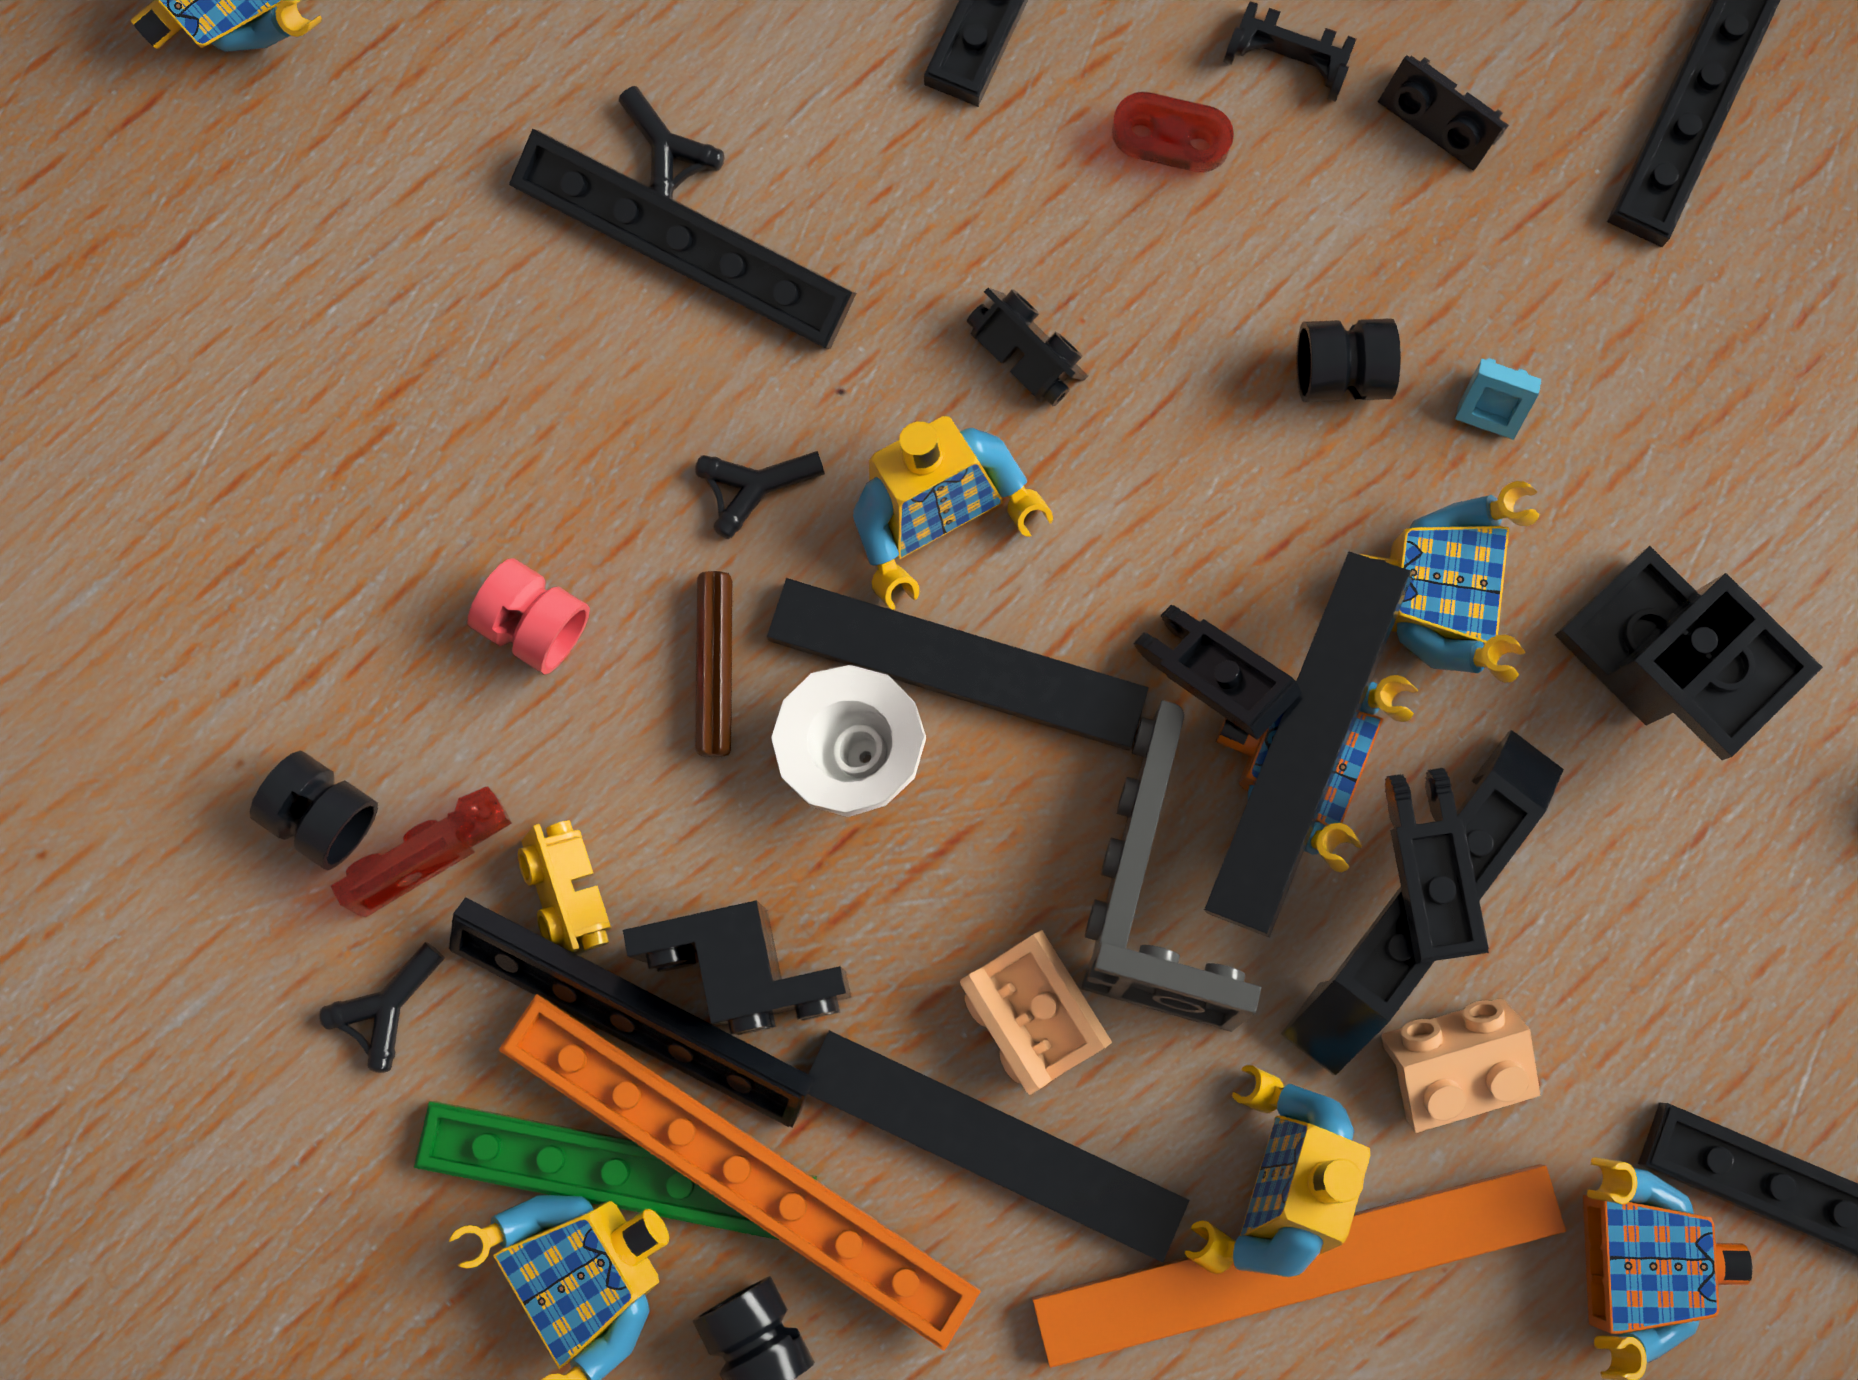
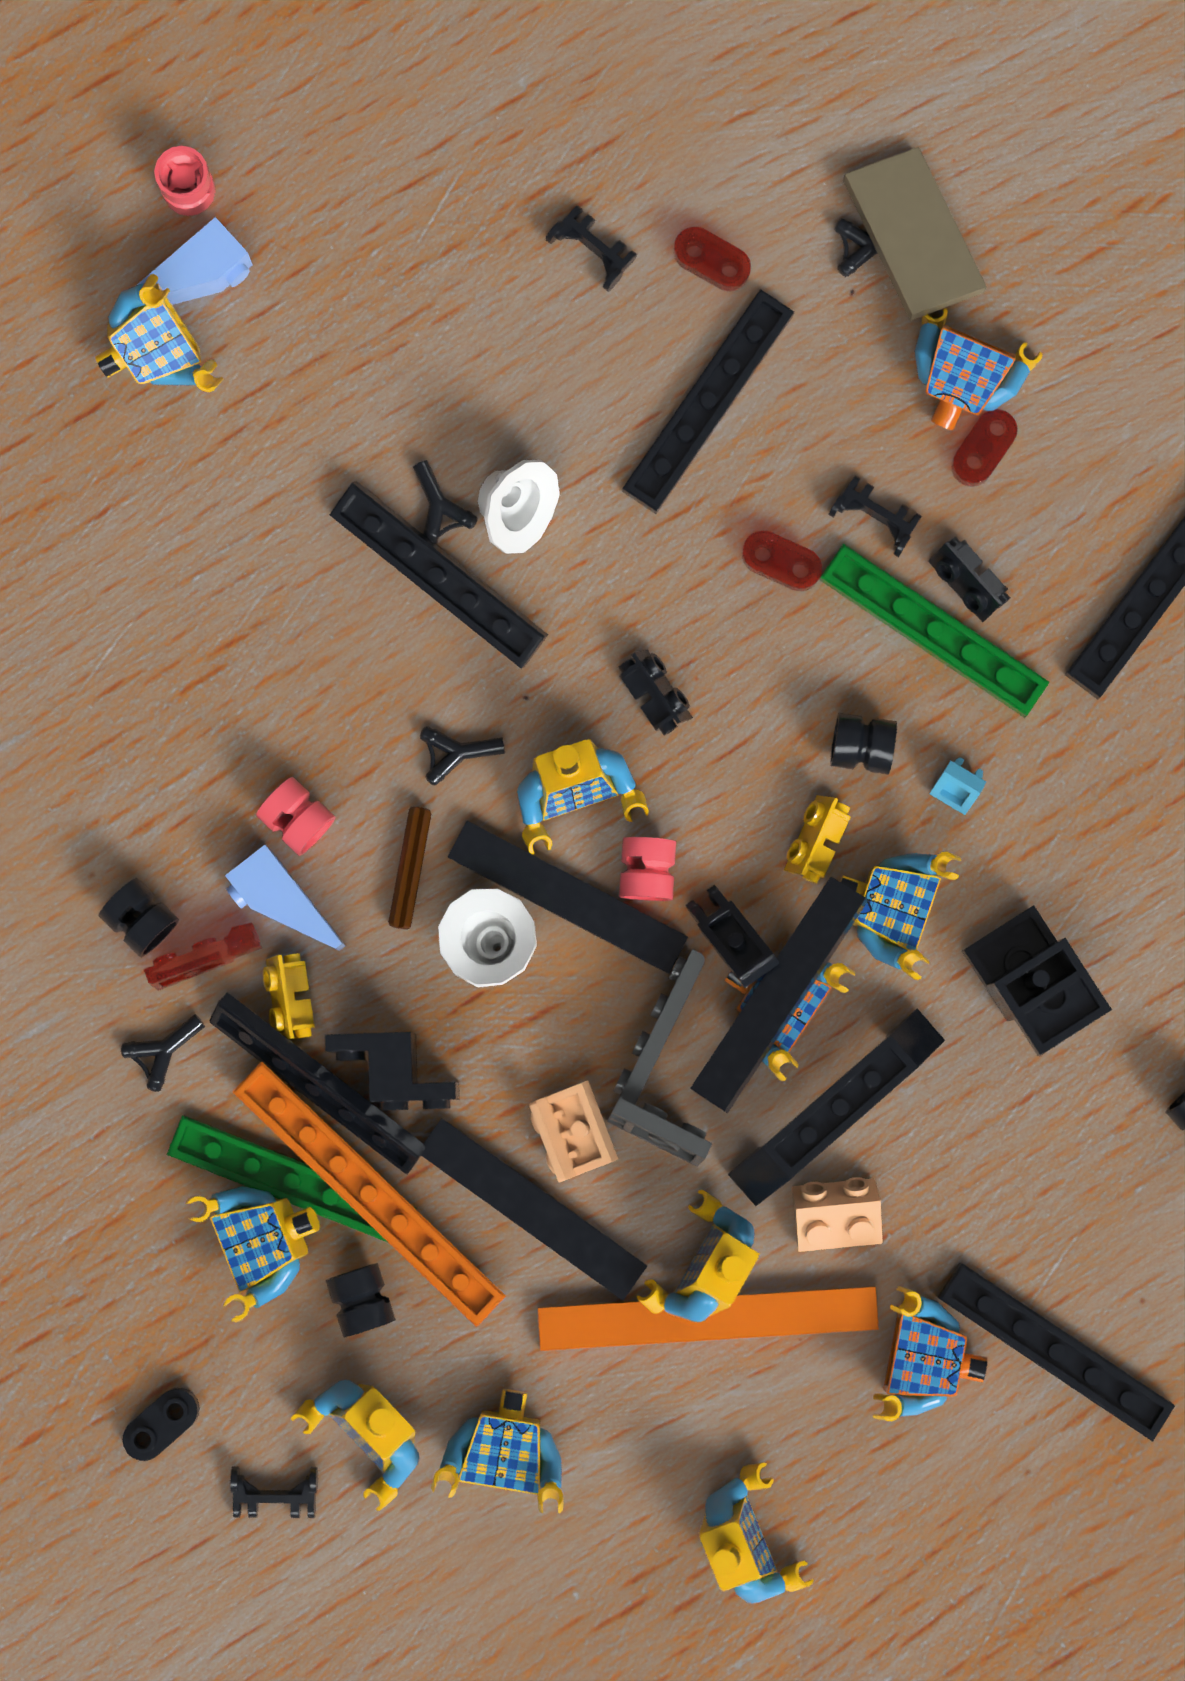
camera: 10 degrees right, 5 degrees up
(516, 739) = (273, 892): none -> light blue slope
(780, 111) = (518, 504): none -> white hat
(1068, 589) = (647, 869): none -> coral wheel
(1310, 483) = (822, 820): none -> yellow hinge
(1410, 192) = (934, 630): none -> green tile
(1435, 872) = (837, 1094): black hinge -> none

